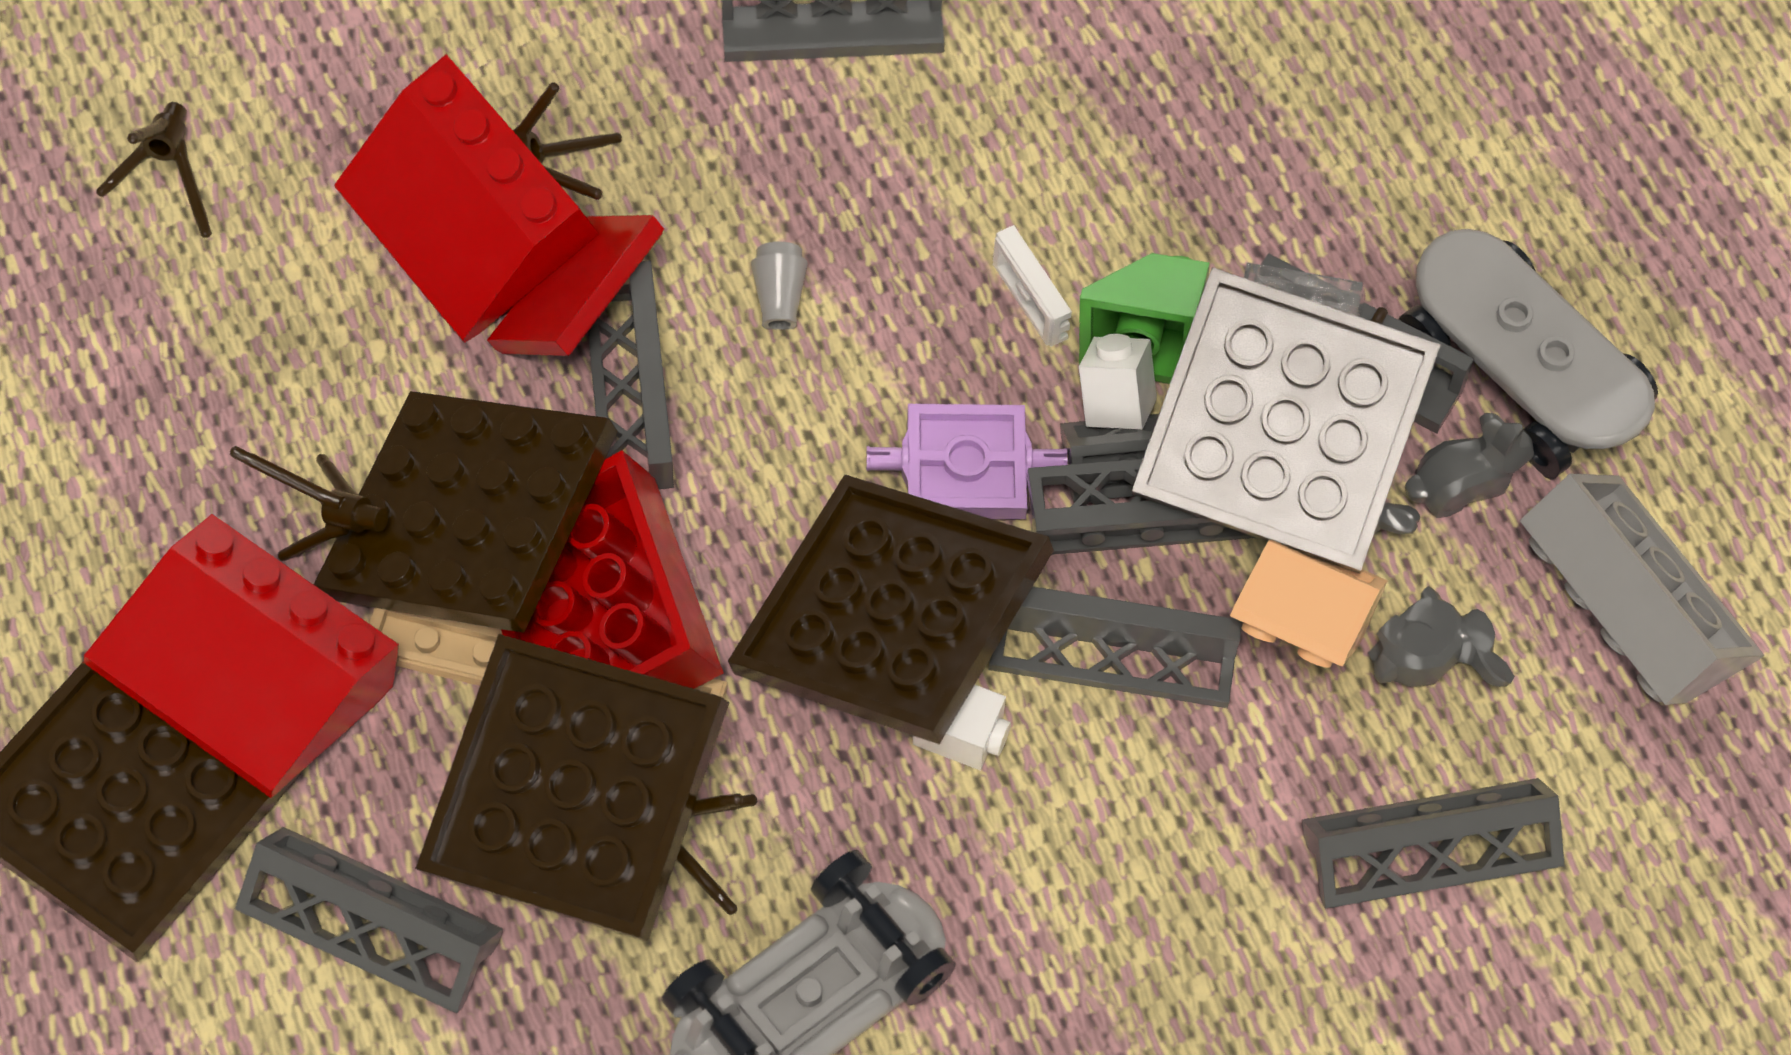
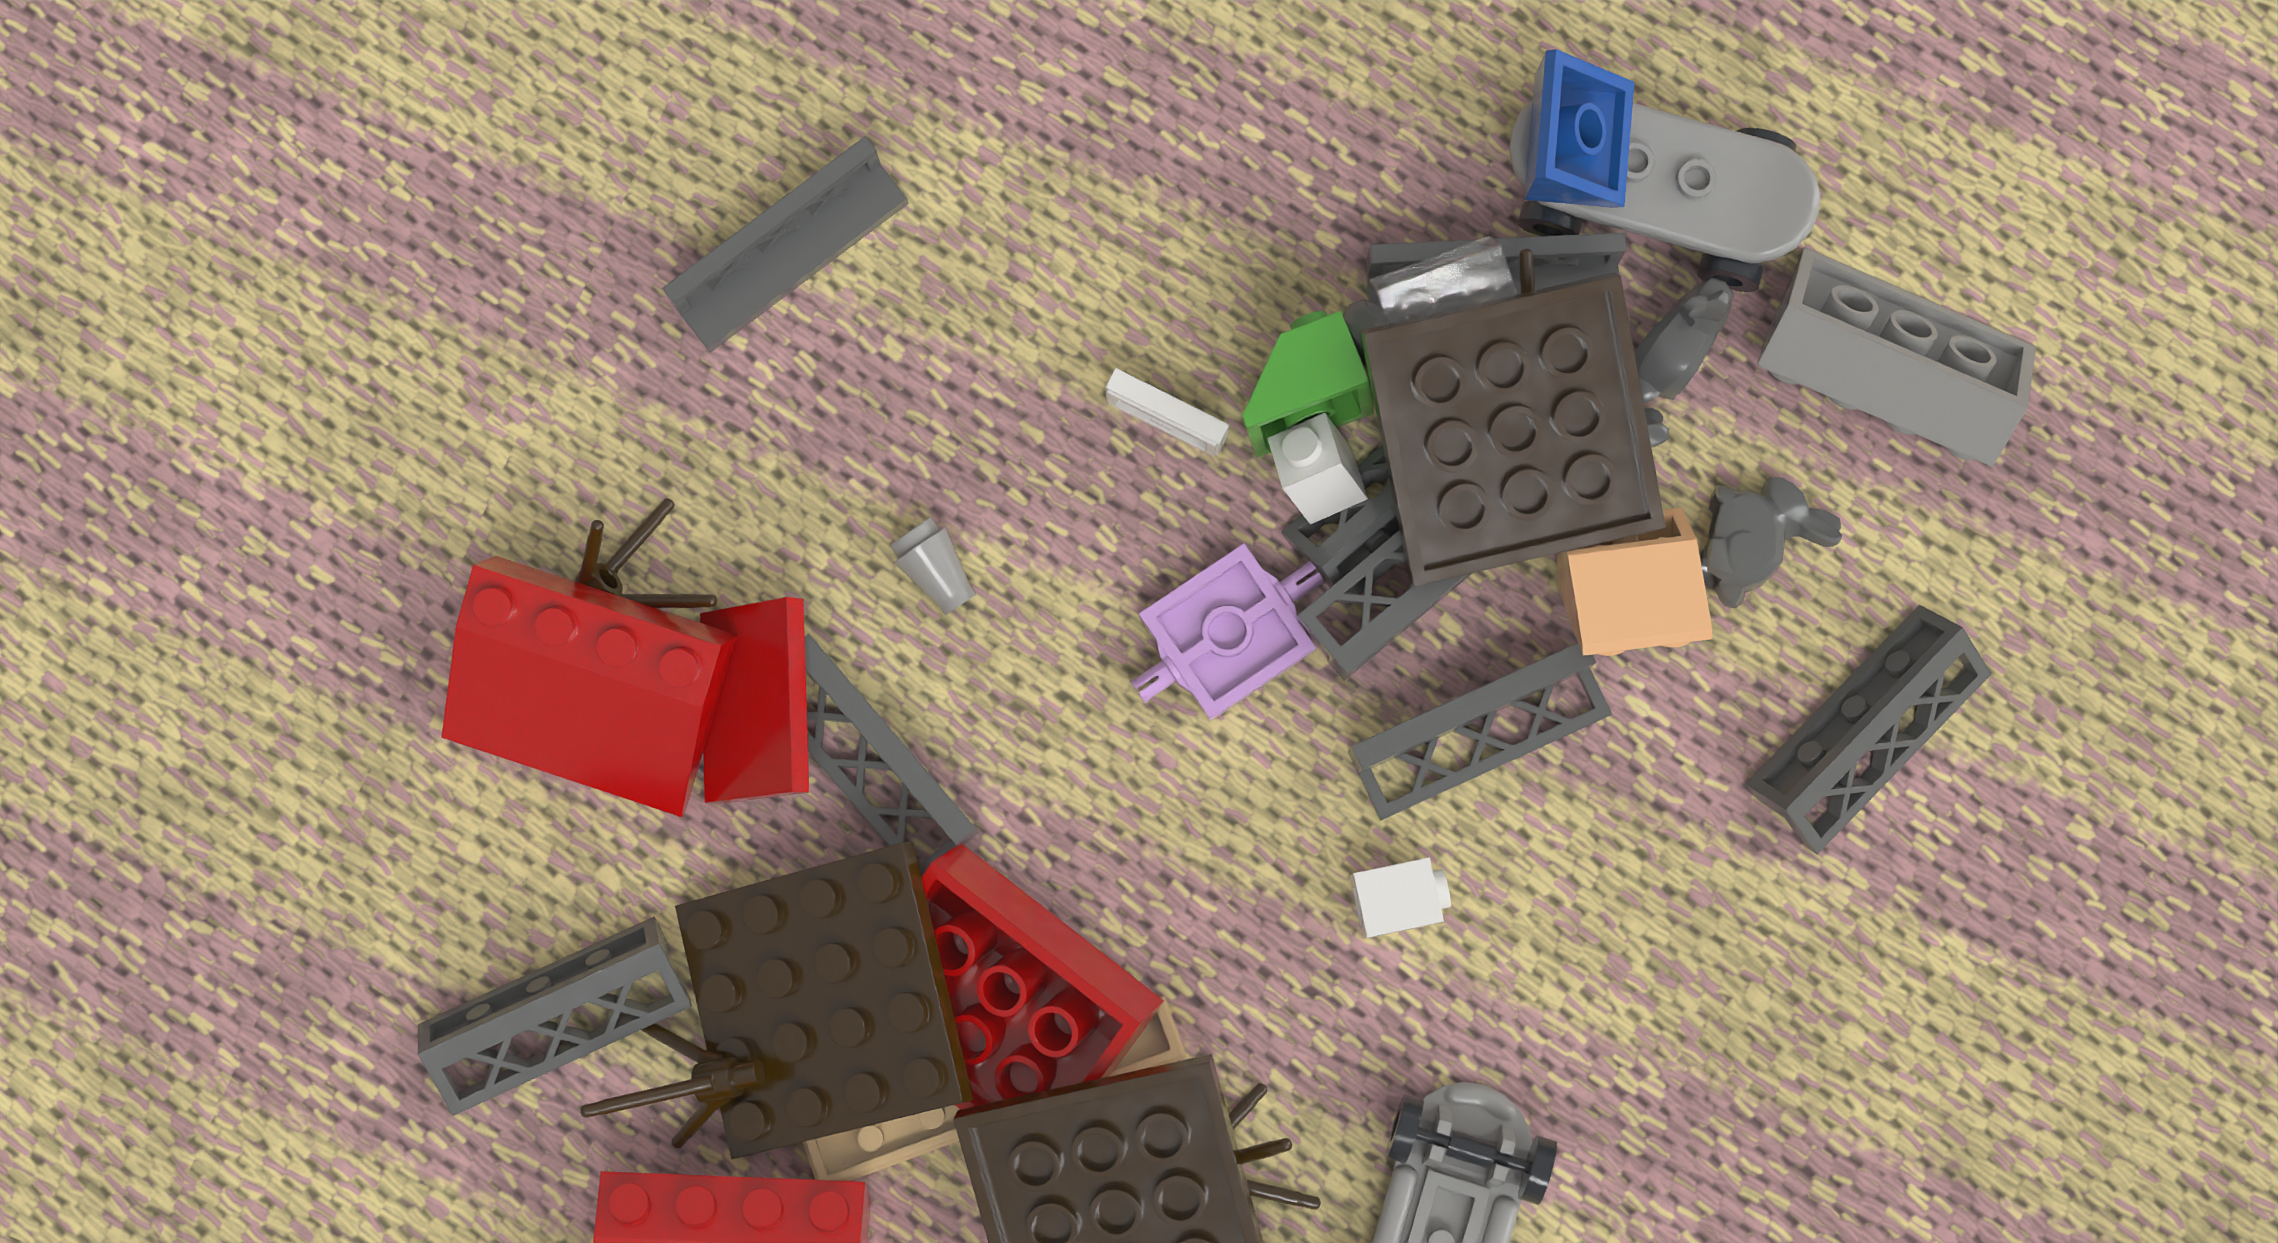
camera: 30 degrees left, 20 degrees up
(164, 142) = (248, 802): dark brown plant -> none
(264, 386) = (541, 996): none -> dark grey fence
(891, 607) = (1270, 837): dark brown plate -> none
(1480, 256) = (1578, 133): none -> blue slope

